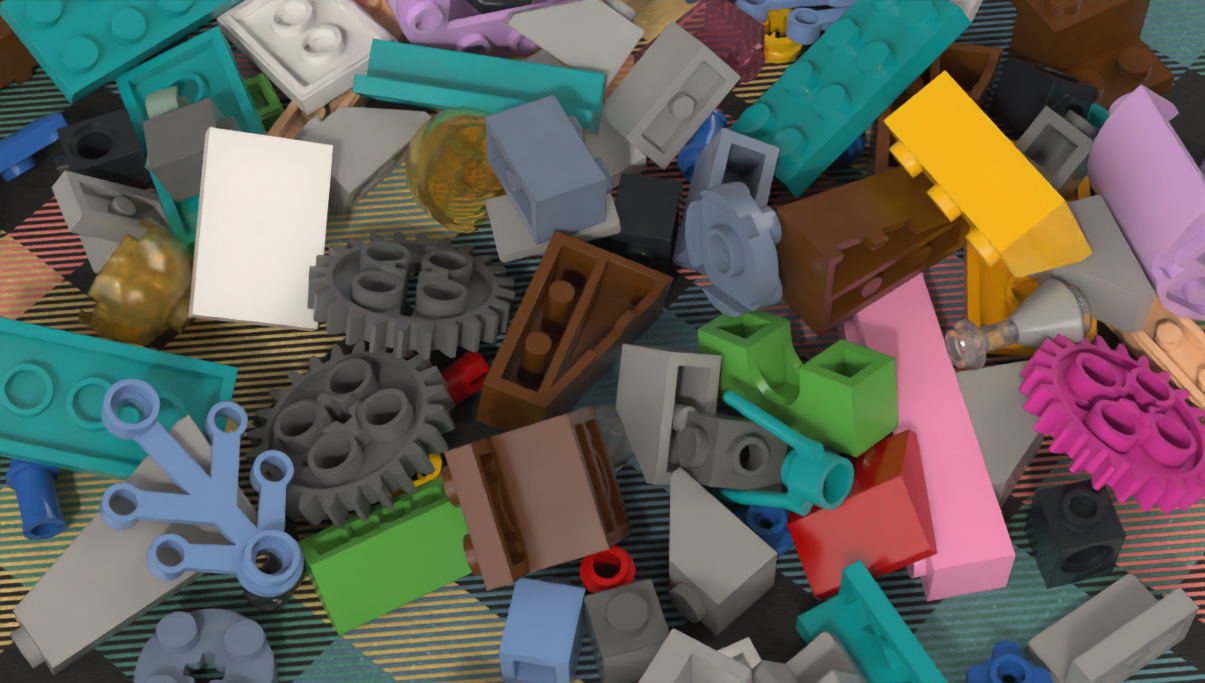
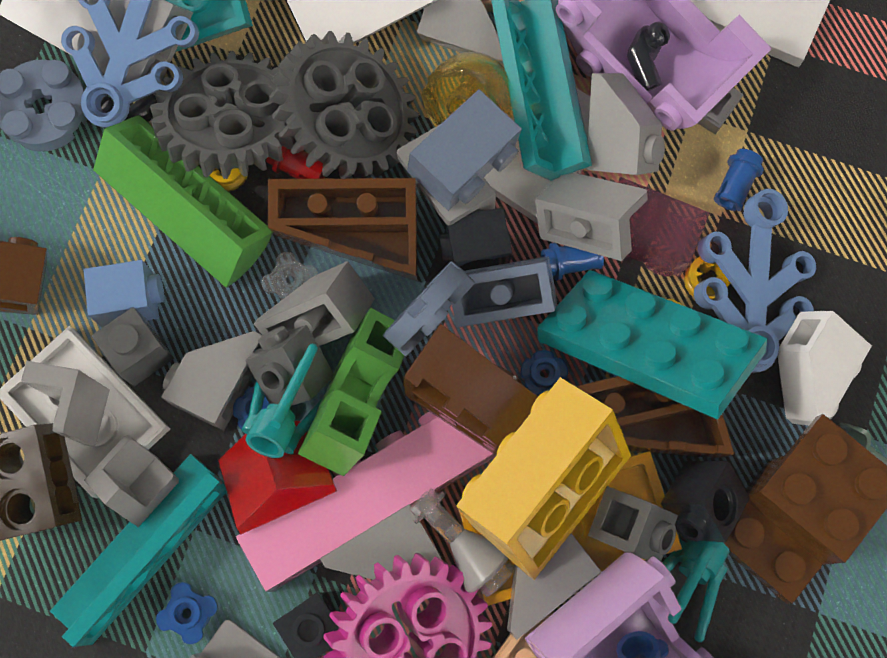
camera: 65 degrees right, 20 degrees up
(536, 497) = (186, 248): reddish brown bracket -> none
(607, 570) = (167, 317): red pin -> none

